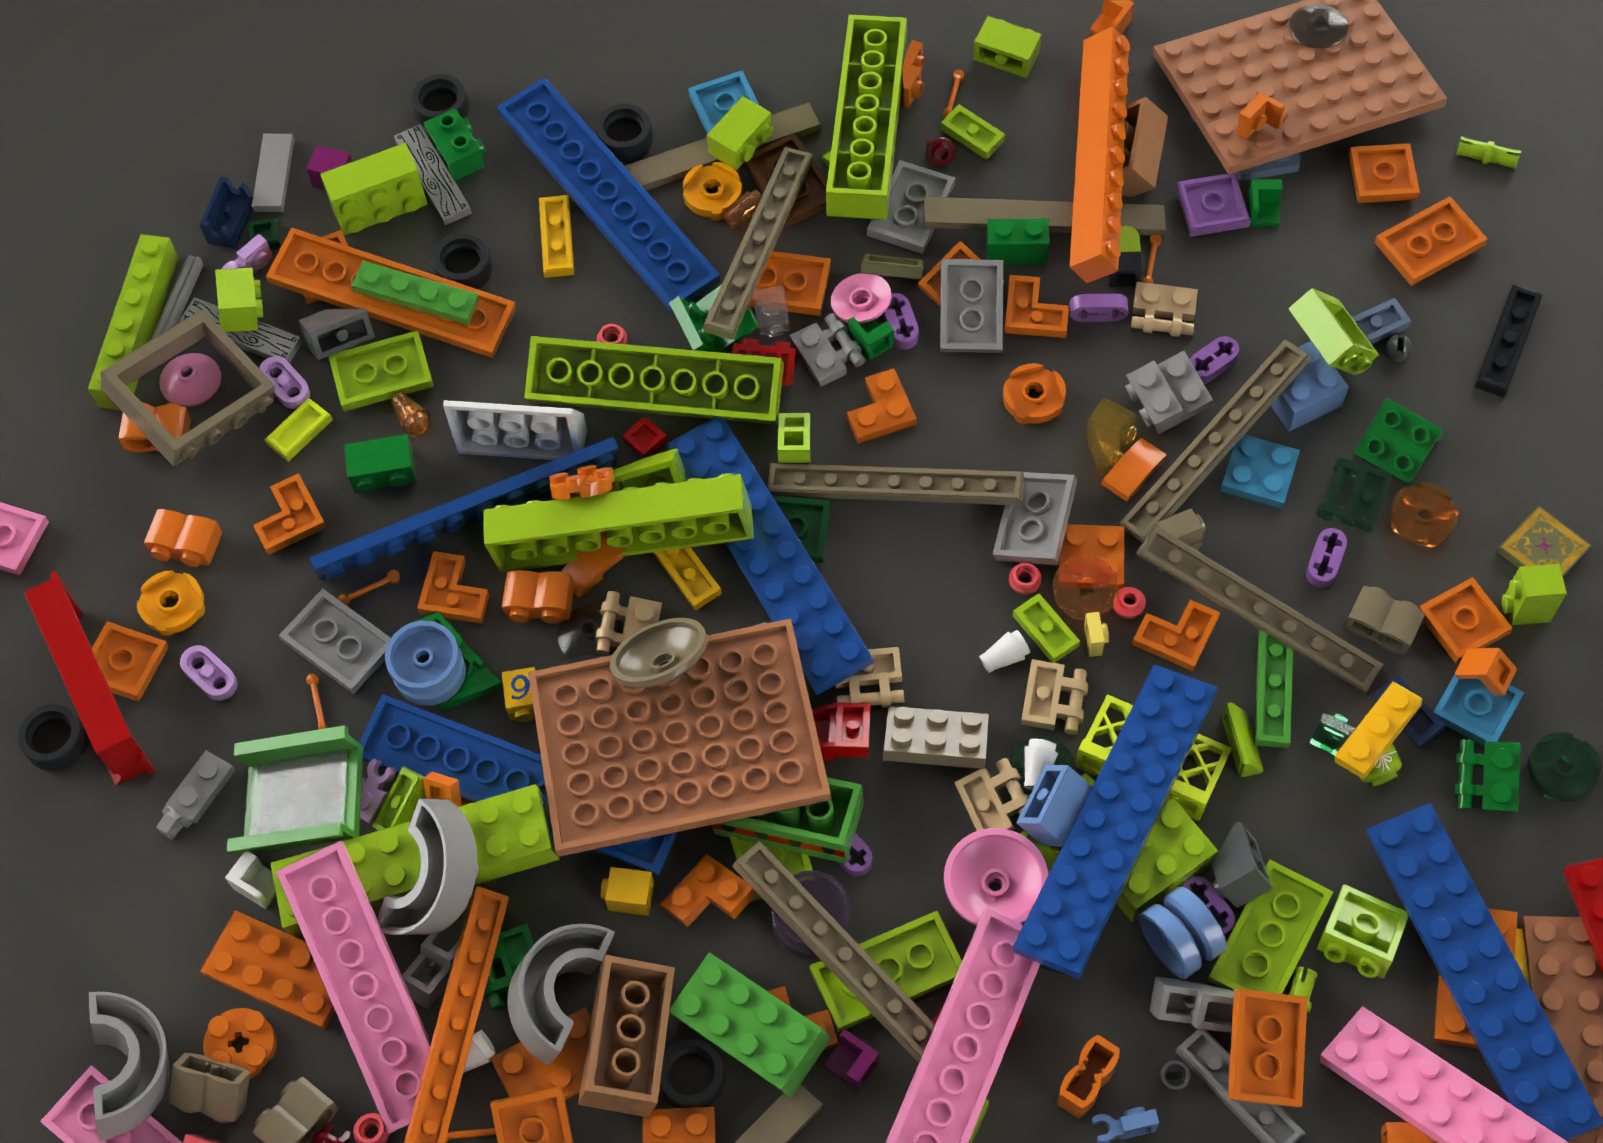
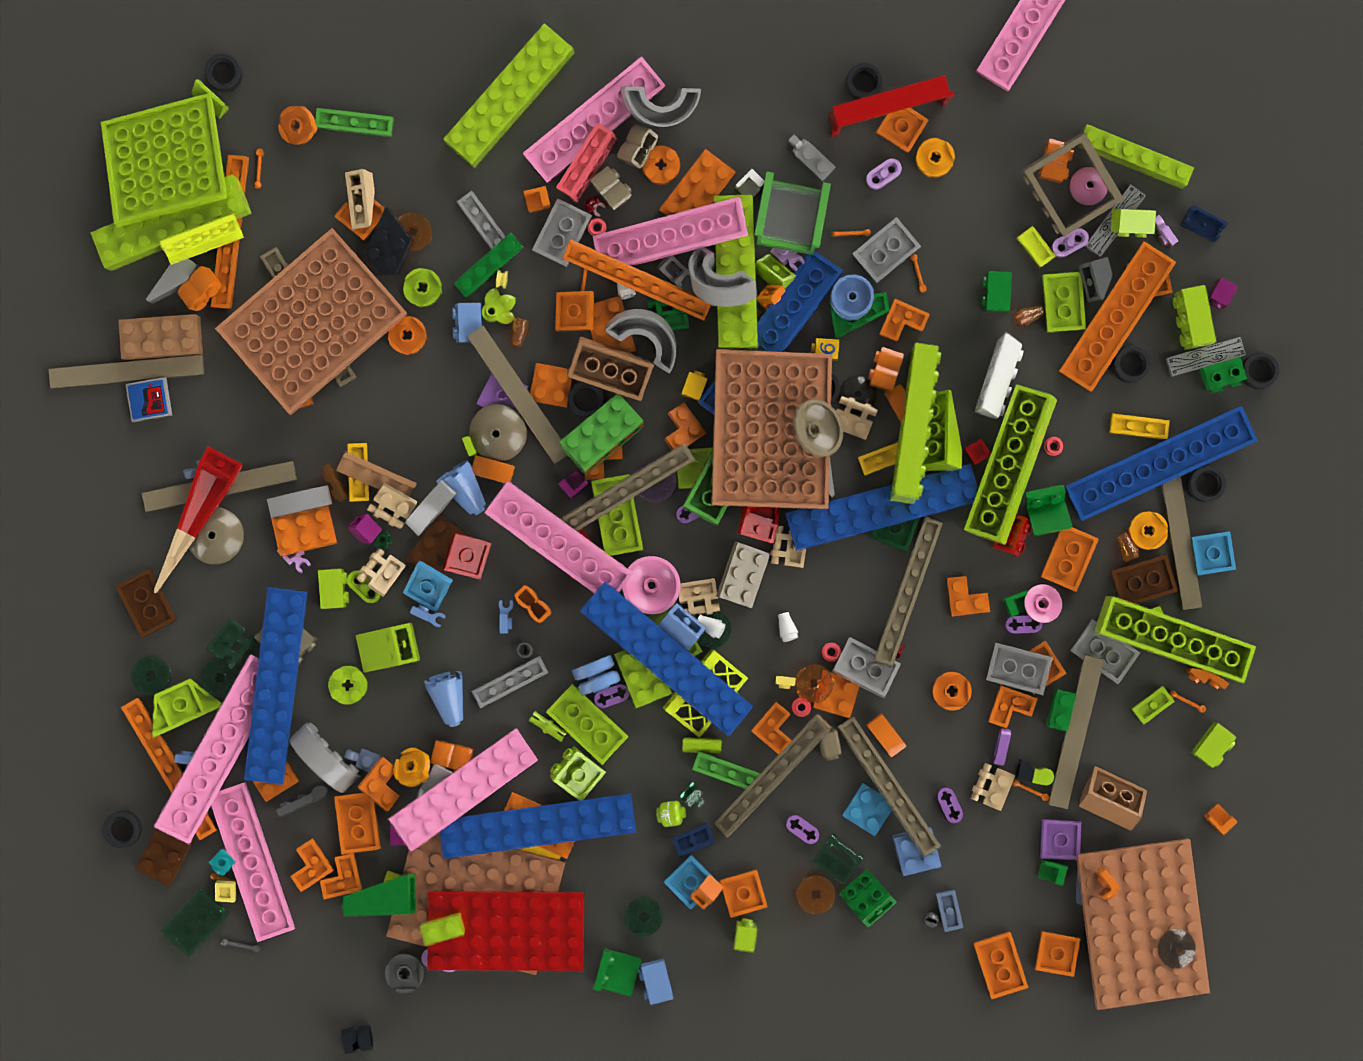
camera: 100 degrees right, 25 degrees up
(179, 295) = (1142, 182): light grey axle -> none
(183, 537) = (975, 169): orange brick -> none
(267, 229) = (1185, 244): dark green tile -> none
(273, 172) = (1232, 256): light grey tile -> none
(295, 521) = (975, 239): orange plate -> none
(415, 292) = (1110, 331): bright green plate -> none
(455, 513) = (949, 330): blue plate -> none
(587, 482) = (941, 406): orange plate -> none
(740, 133) = (1180, 555): lime brick -> none
(758, 244) = (1094, 549): dark tan tile -> none
(771, 311) = (1045, 546): clear bracket -> none
(794, 438) = (954, 540): lime brick -> none
(819, 355) = (1012, 569): light grey plate -> none
(892, 266) = (1062, 629): olive tile -> none
(940, 151) = (1141, 680): dark red plate -> none
(1043, 696) = (756, 642): tan plate -> none
(1046, 628) = (796, 655): lime plate -> none
(1100, 156) = (1109, 778): orange brick -> none
(1107, 433) = (913, 726): clear yellow slope -> none
(1168, 392) = (931, 770): light grey plate -> none
(1192, 1003) = (555, 678): light grey slope -> none
(1240, 868) = (627, 719): dark grey slope -> none
(1267, 1048) = (524, 700): orange plate -> none
(1334, 332) = (942, 879): lime window -> none
(1378, 730) = (683, 818): yellow plate -> none
(1384, 620) = (754, 848): dark tan brick -> none
(1488, 152) = (1057, 1024): lime pin -> none
(1500, 776) = (645, 878): green plate -> none
(1508, 341) = (920, 987): black tile -> none
(1544, 541) = (778, 956): tile -> none

